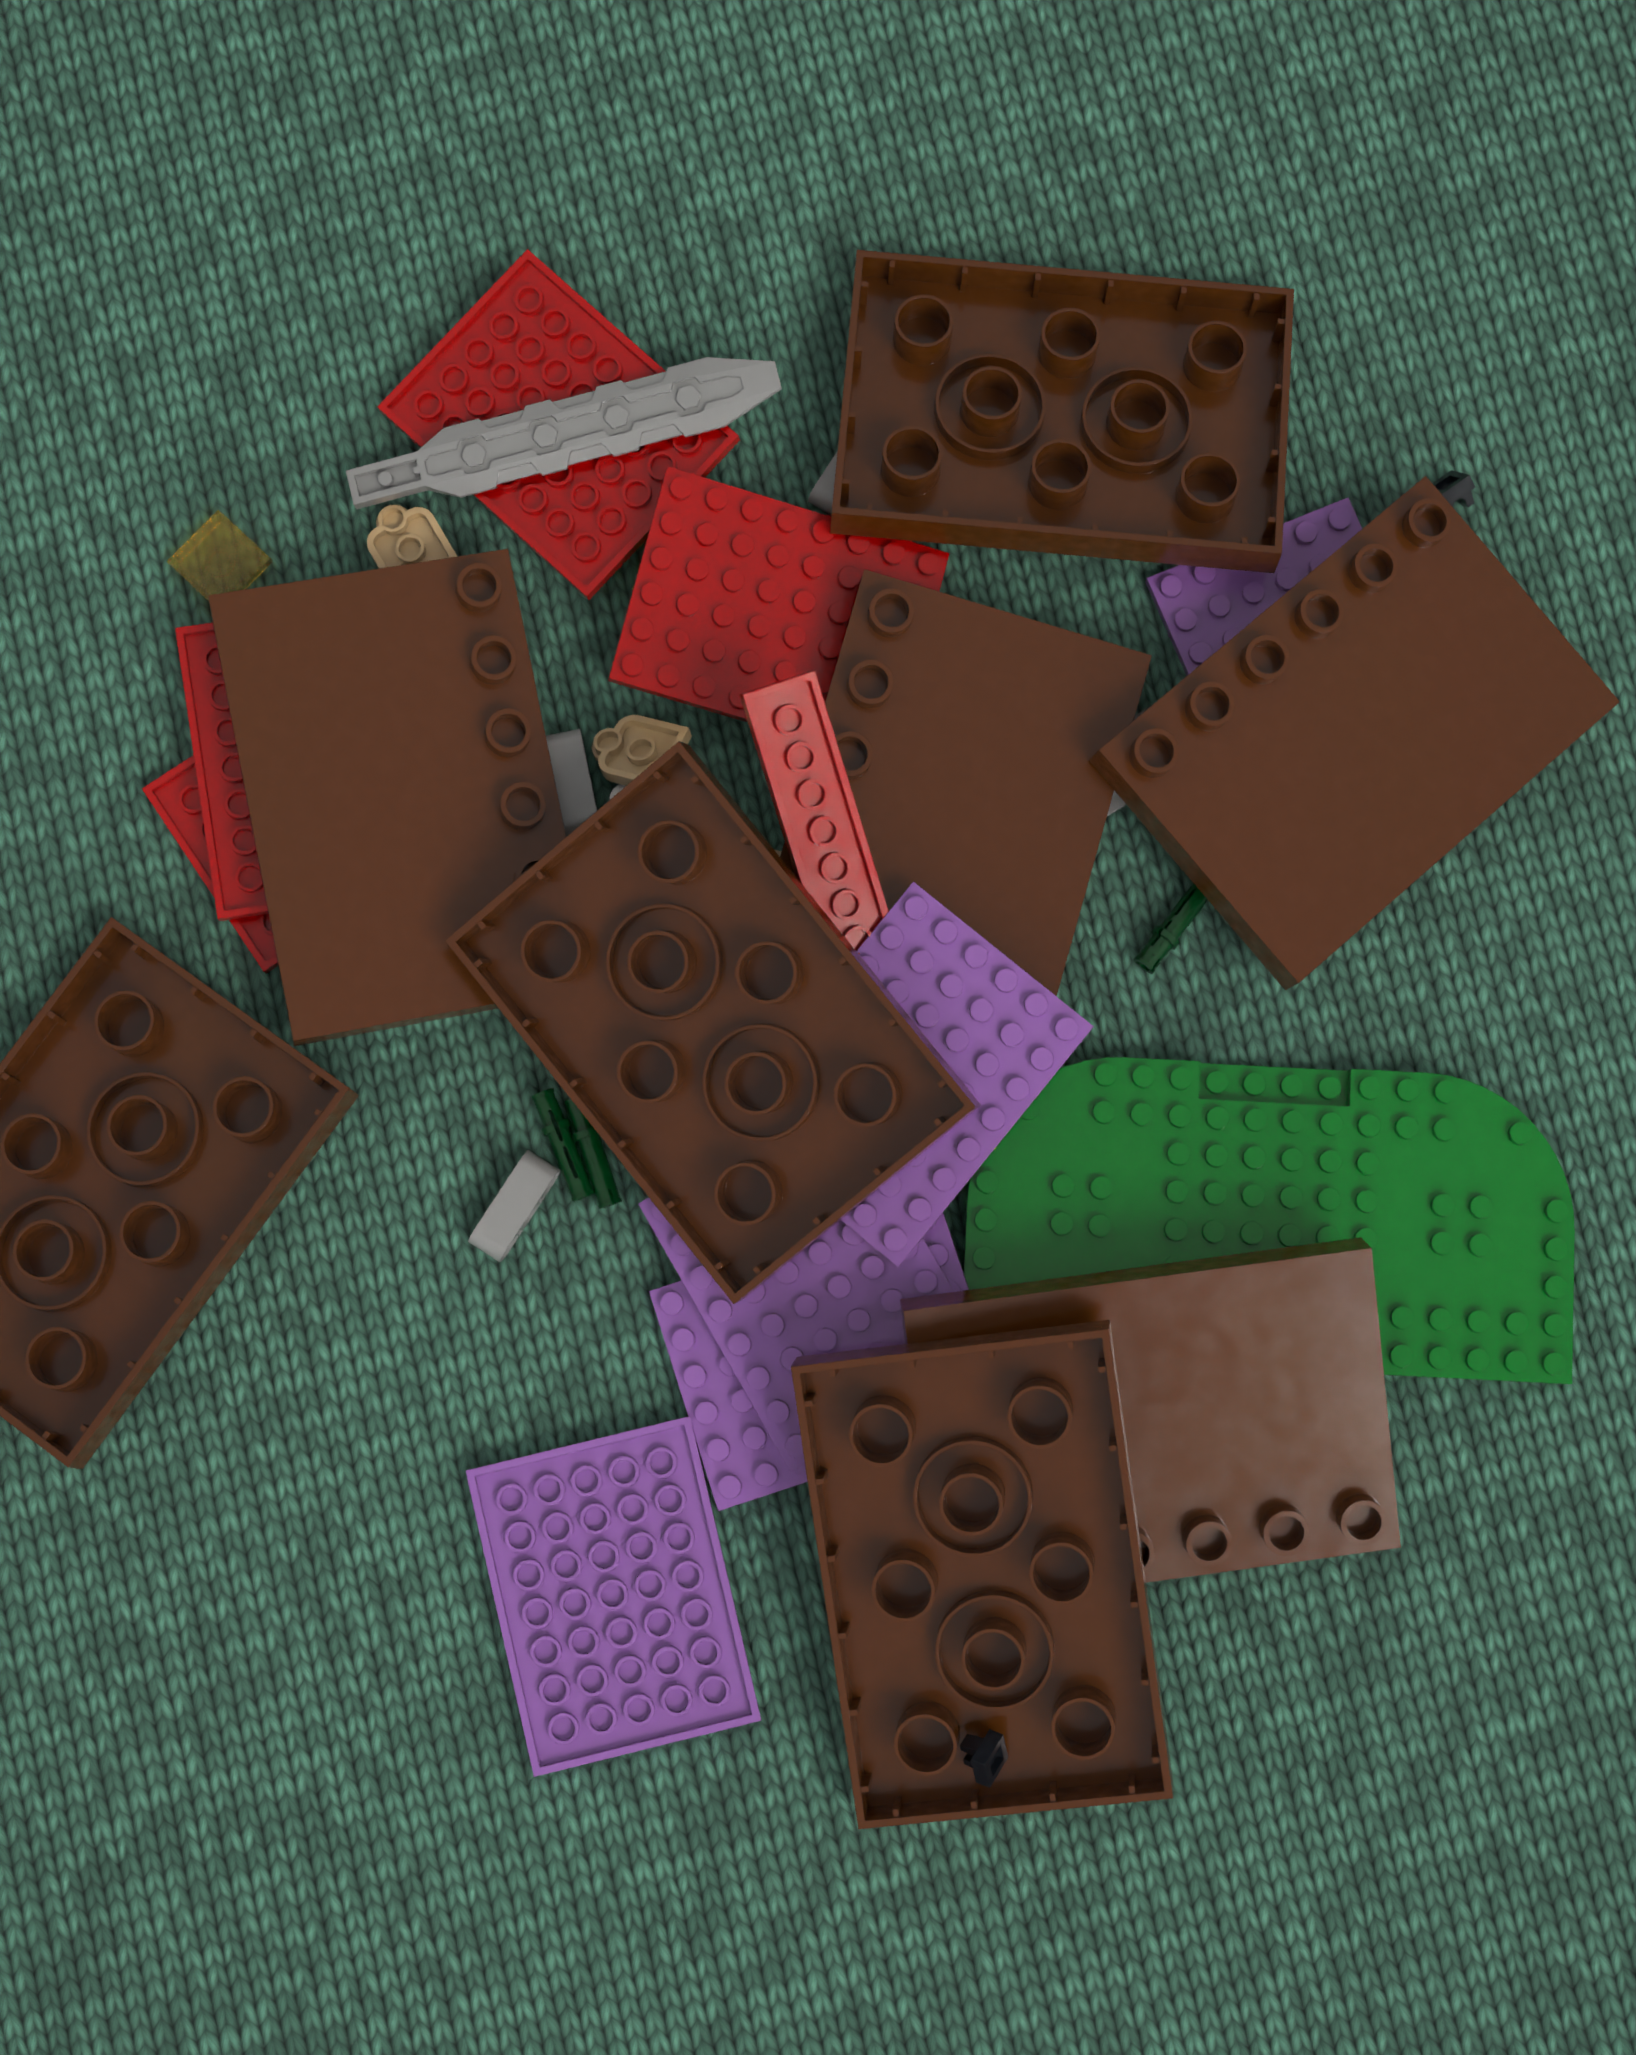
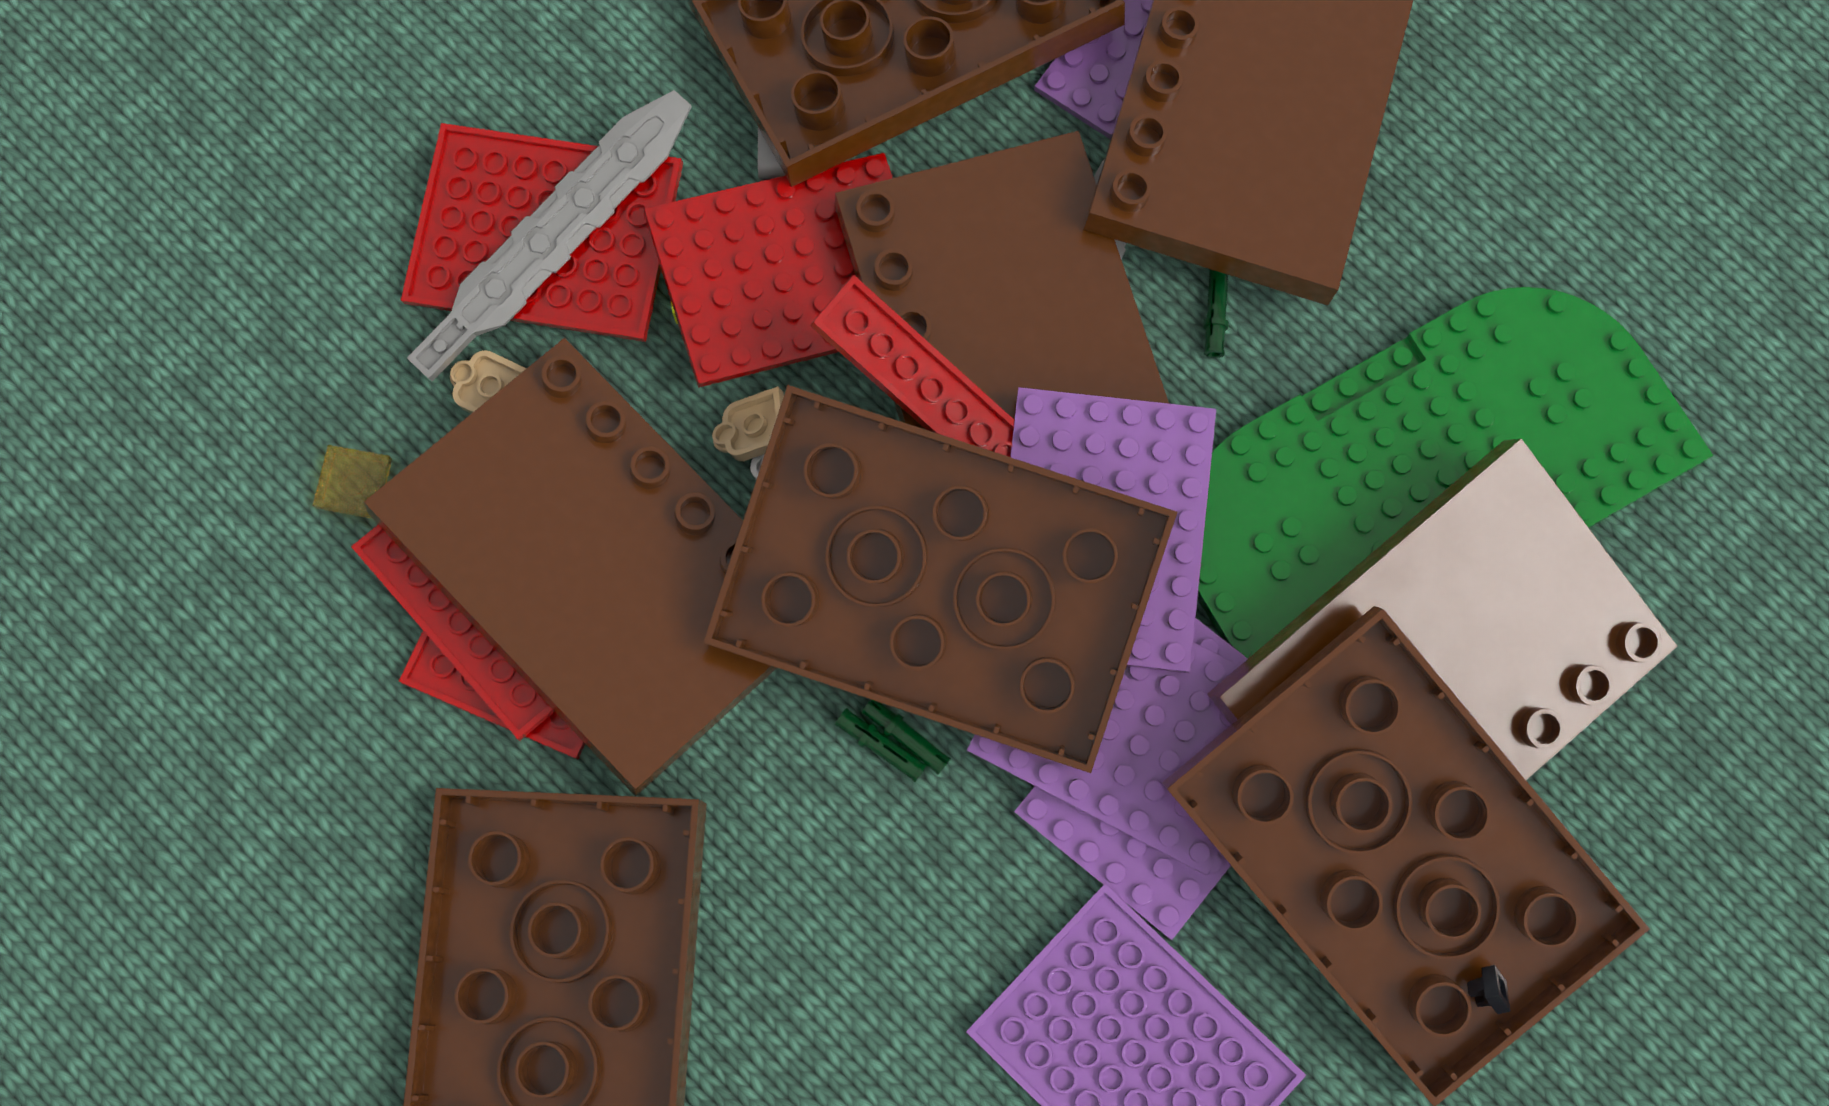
camera: 25 degrees left, 5 degrees down
(514, 1206) = (874, 812): light grey beam -> none
(571, 778) = (718, 475): light grey beam -> none

